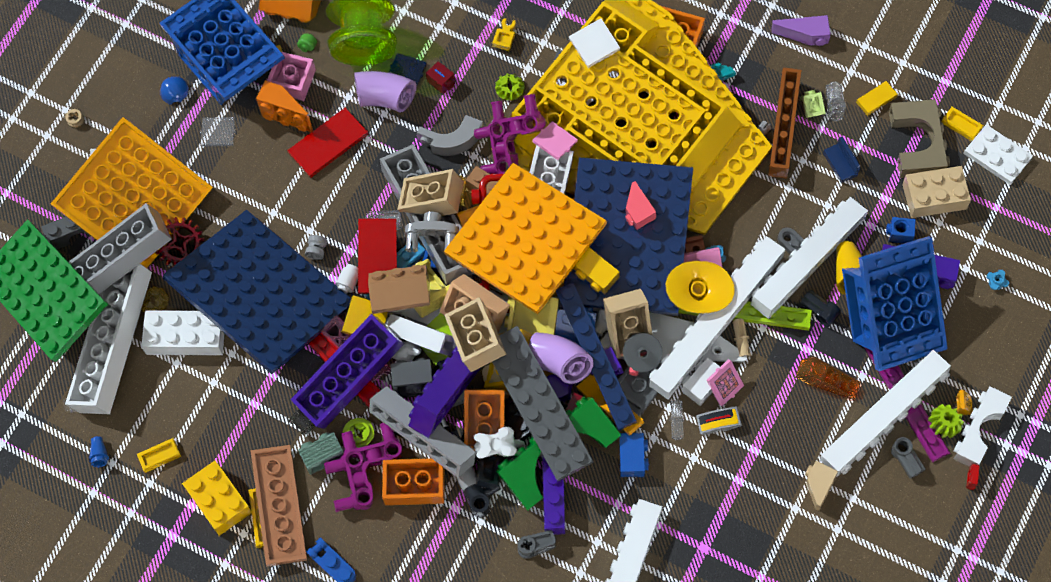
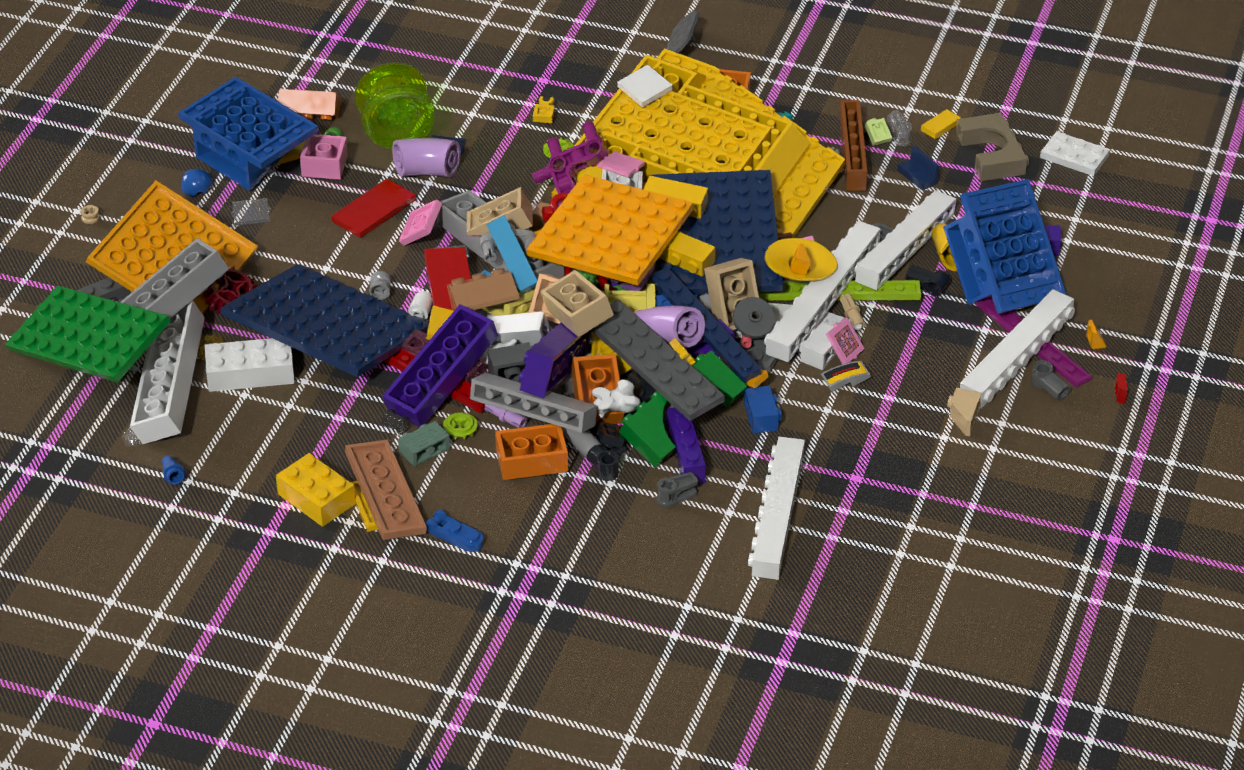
camera: 15 degrees left, 25 degrees down
(159, 455) = (240, 467): yellow tile -> none
(279, 105) = (322, 178): orange slope -> none
(363, 176) = (420, 222): none -> bright pink tile
(369, 457) = (467, 445): magenta pin -> none
(431, 252) = (512, 254): none -> dark azure tile
(440, 77) = (484, 146): dark red brick -> none
(451, 143) = (490, 191): light grey arch -> none
(566, 396) = (683, 353): none -> yellow plate
(596, 197) = (680, 190): none -> yellow brick
(638, 208) = (724, 200): coral slope -> none
(677, 419) = (801, 378): clear axle -> none
(697, 293) = (800, 261): none -> light orange slope
(805, 30) = (852, 79): medium lavender slope -> none
(826, 377) = (946, 329): clear orange slope -> none
(936, 192) = (1035, 169): tan brick -> none
(946, 421) = (1081, 348): lime gear -> none
(962, 124) = (1032, 134): yellow tile -> none
(992, 407) = (1124, 336): white arch -> none
(995, 285) = (1101, 243): dark azure plate -> none

